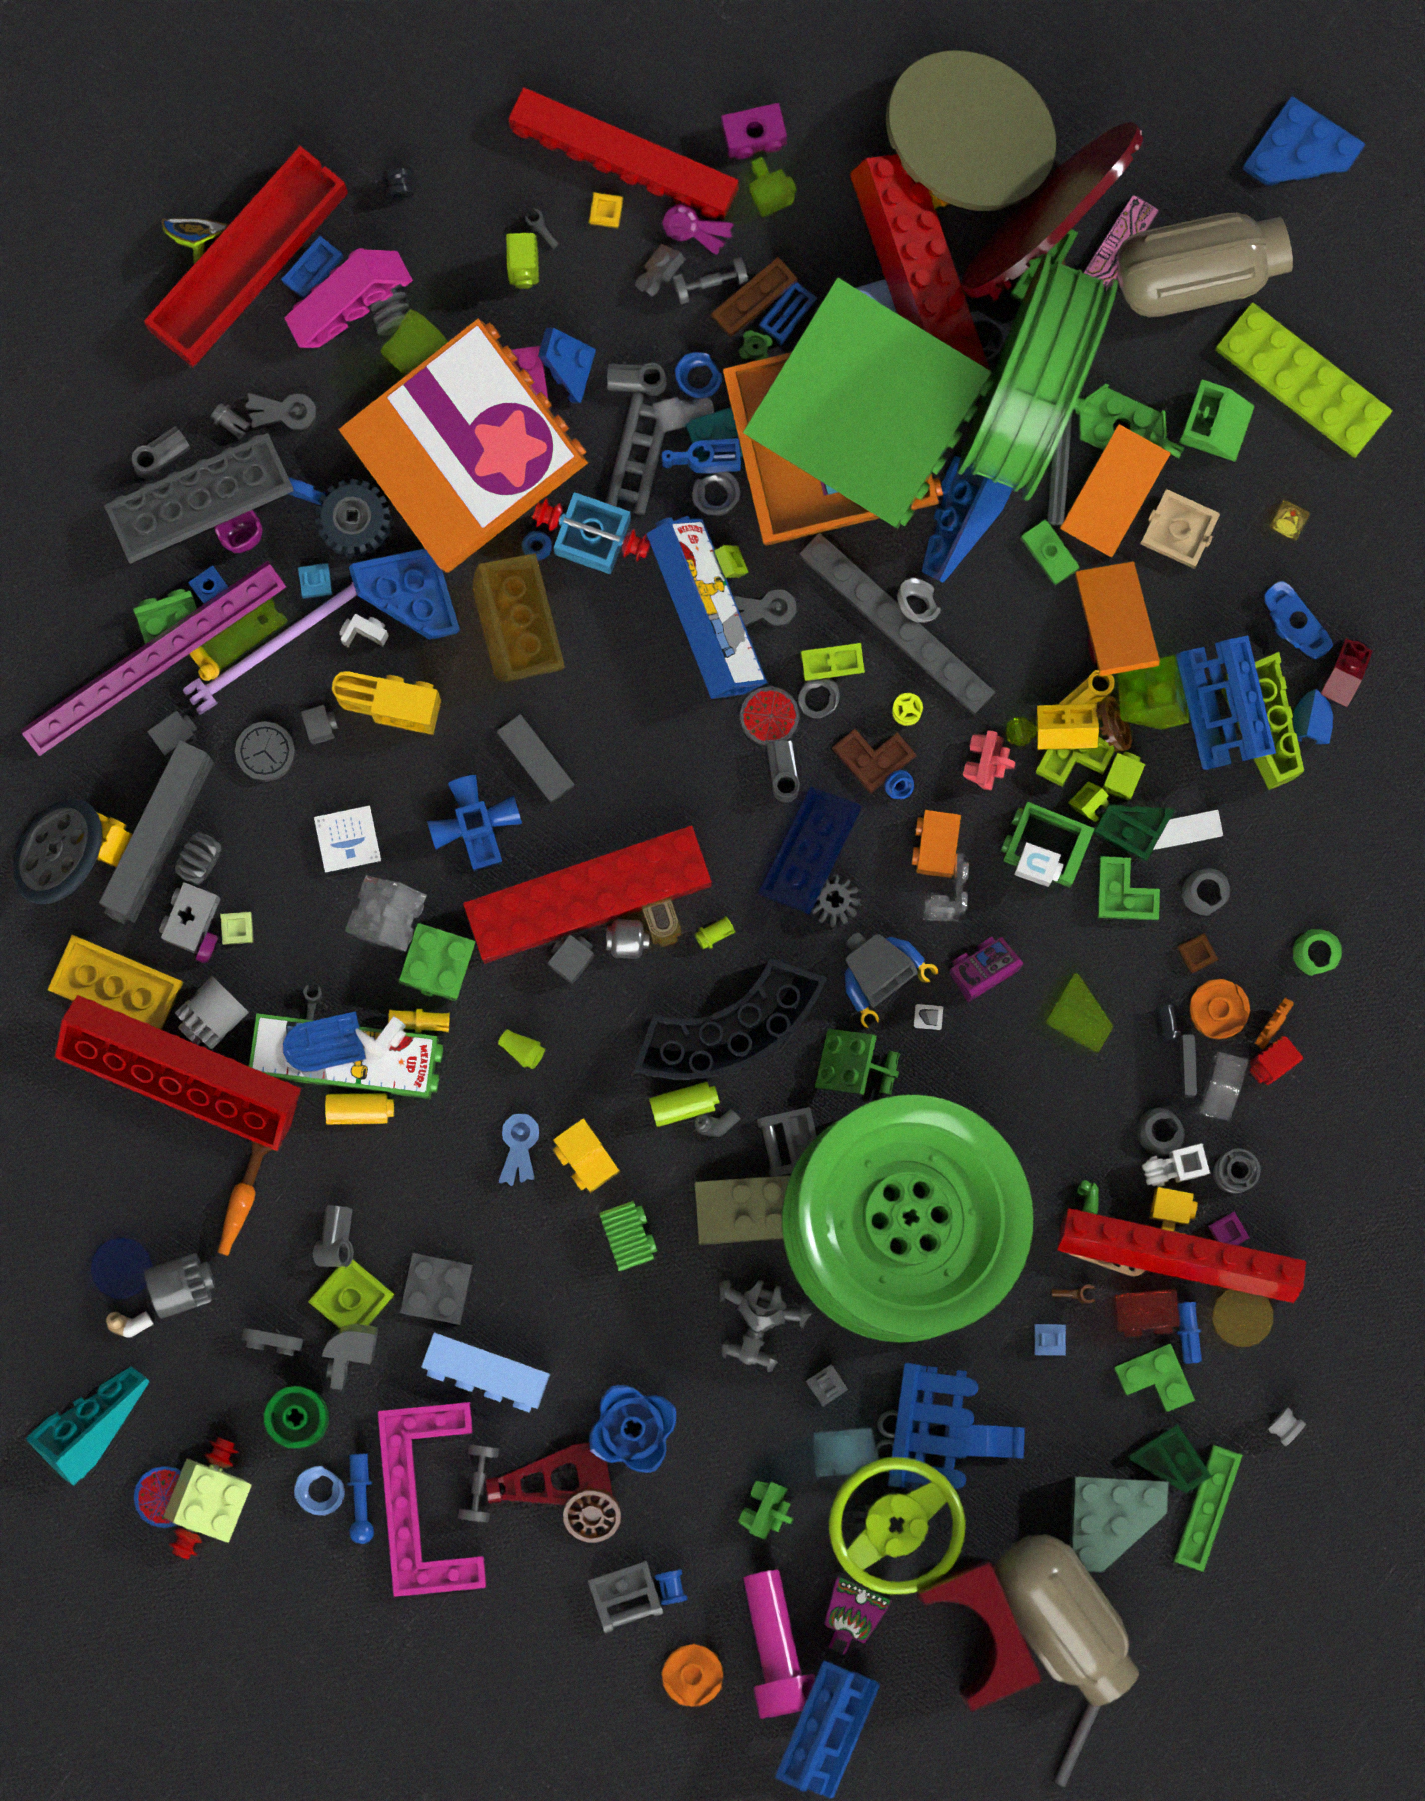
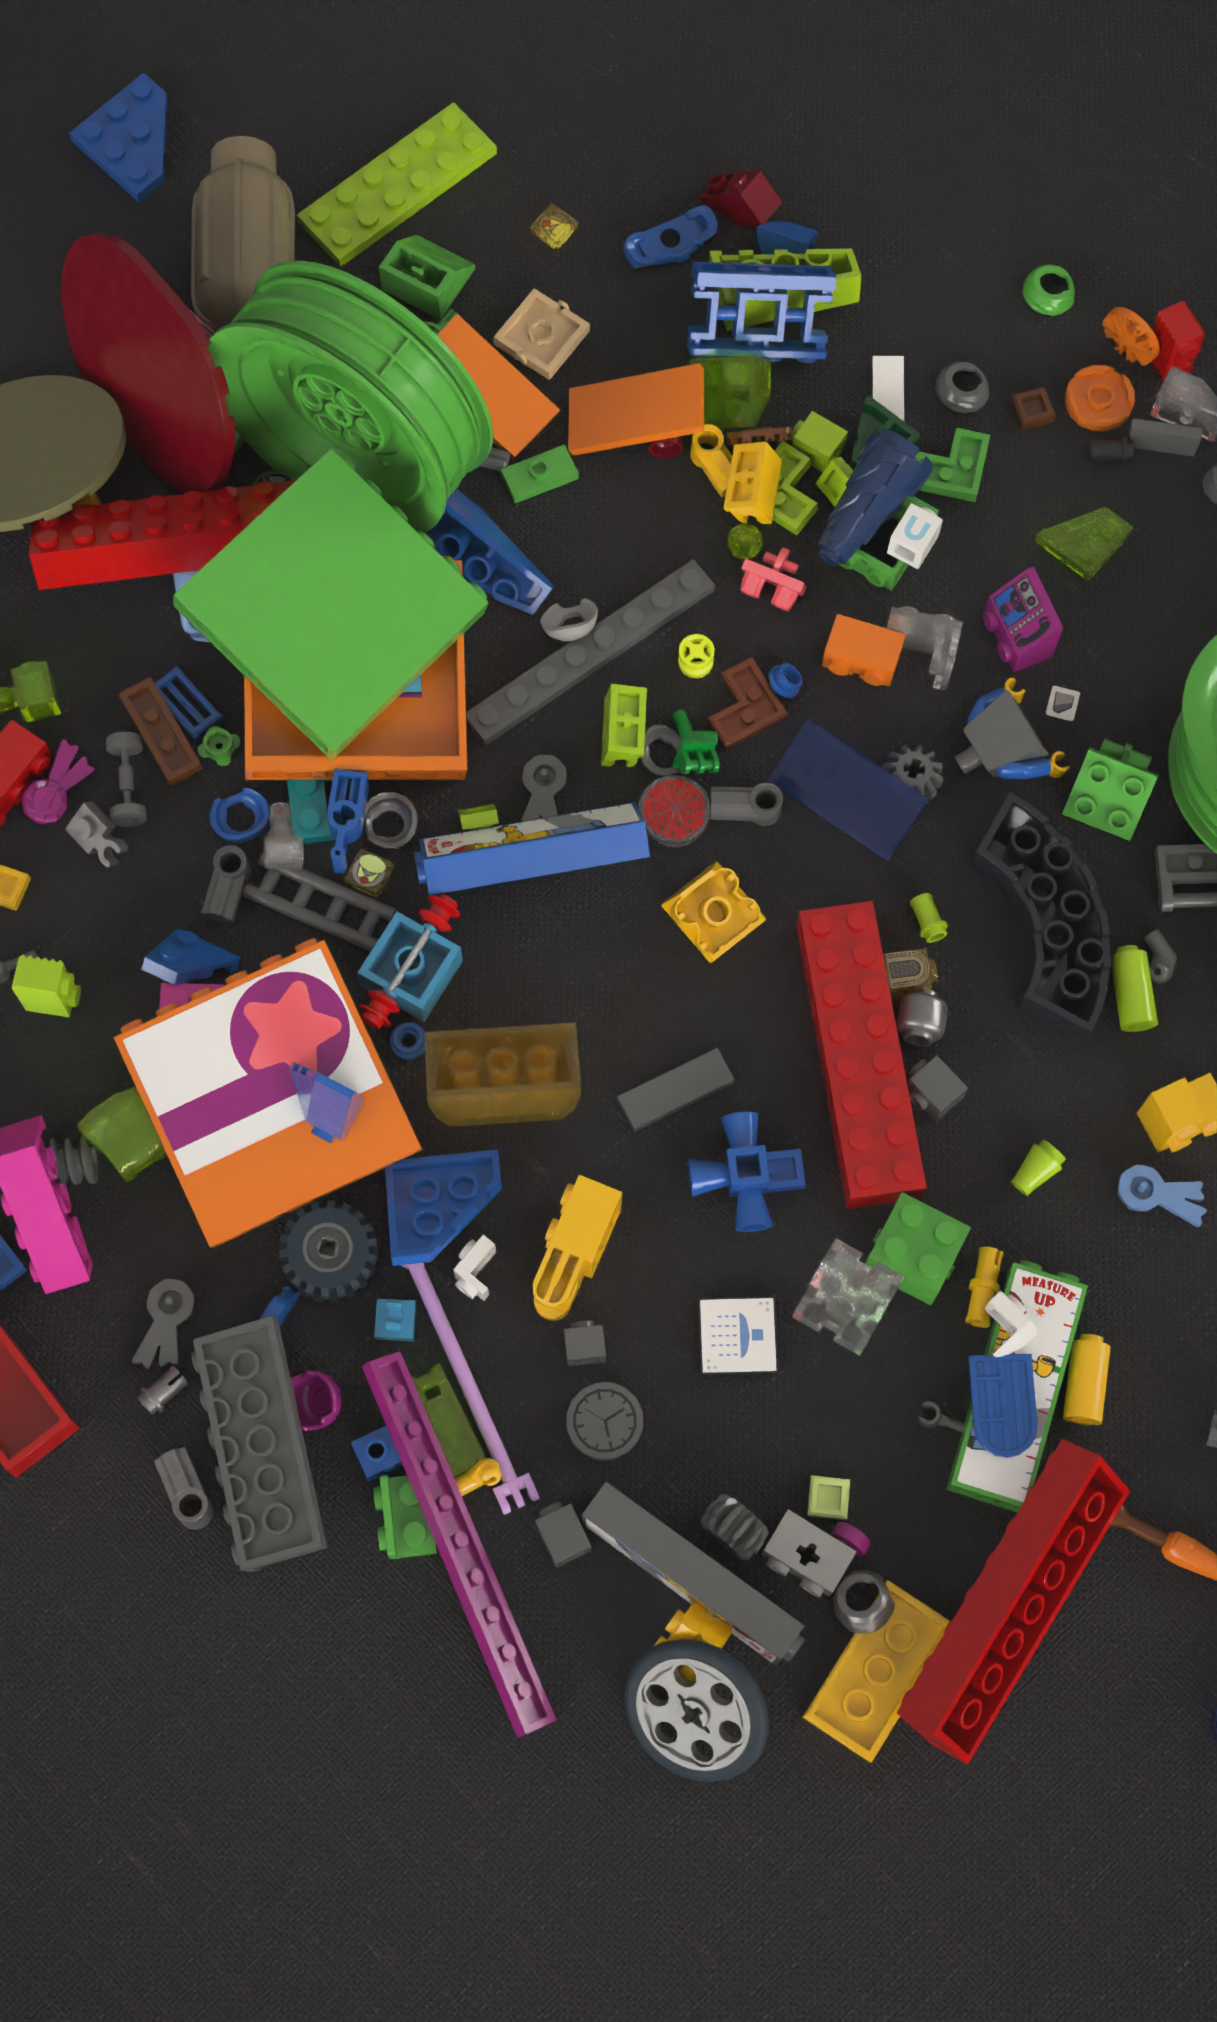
camera: 80 degrees left, 10 degrees down
(156, 977) = (873, 1617): none -> flat silver piece
(210, 1014) = (940, 1546): light grey gear -> none
(455, 485) = (325, 1102): none -> blue wedge
(670, 486) = (369, 873): none -> tile
(688, 761) = (714, 911): none -> yellow slope
(816, 722) = (696, 748): none -> green arm
(1066, 823) = (874, 493): none -> dark blue cone

